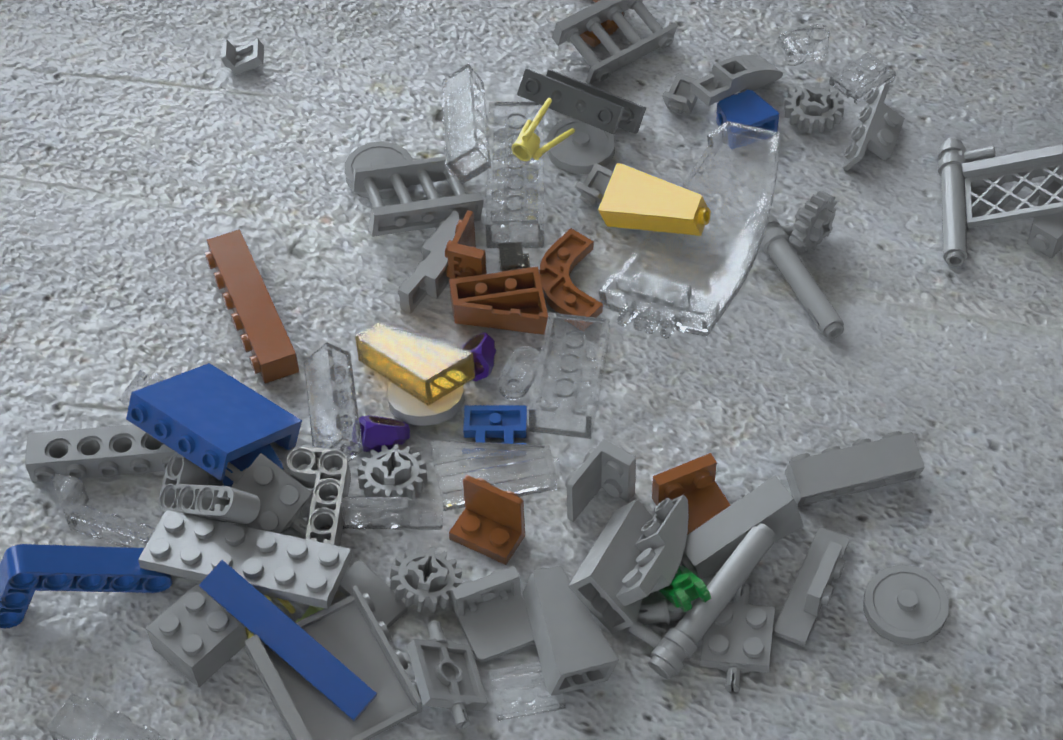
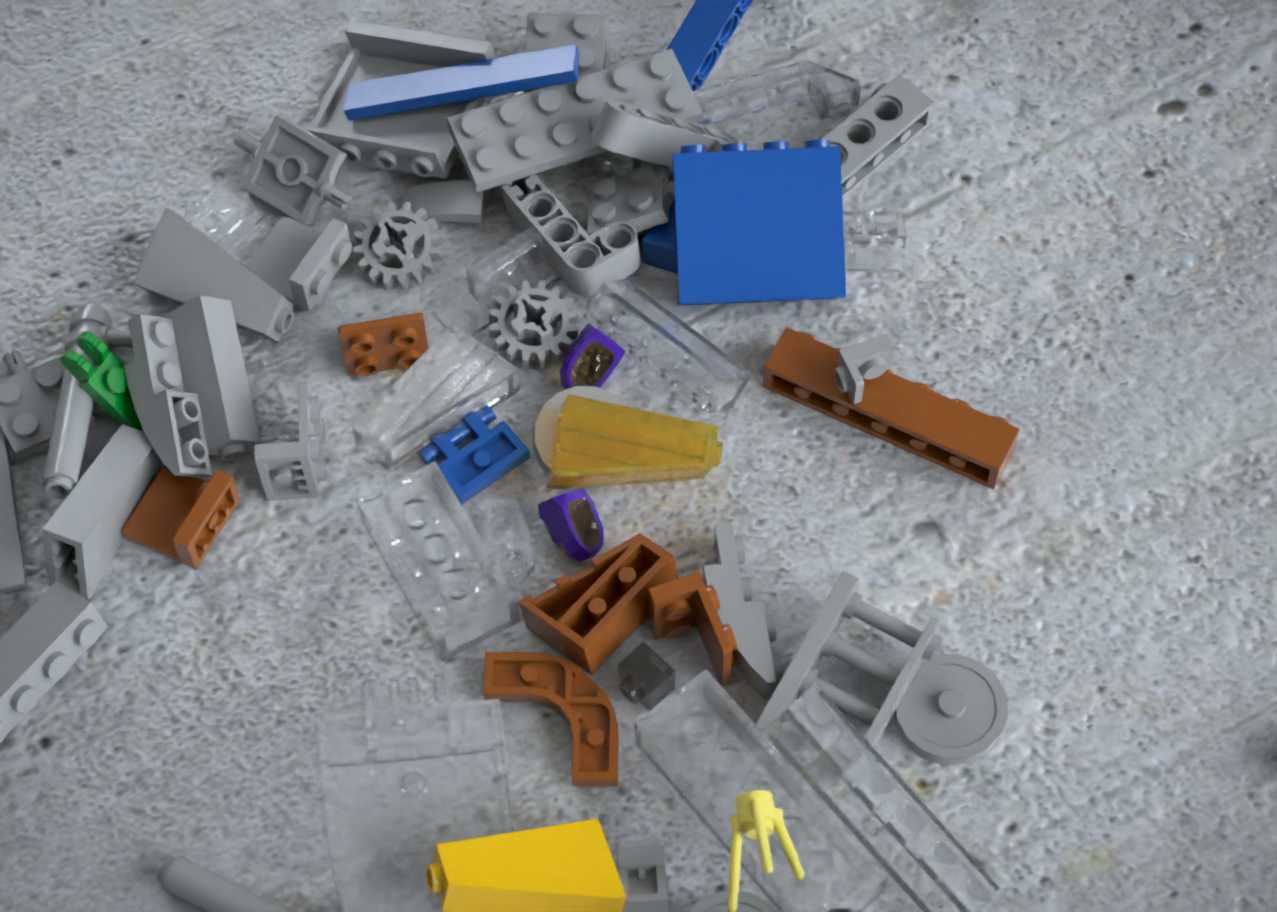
camera: 140 degrees right, 10 degrees up
(250, 307) = (860, 361): none -> light grey bracket

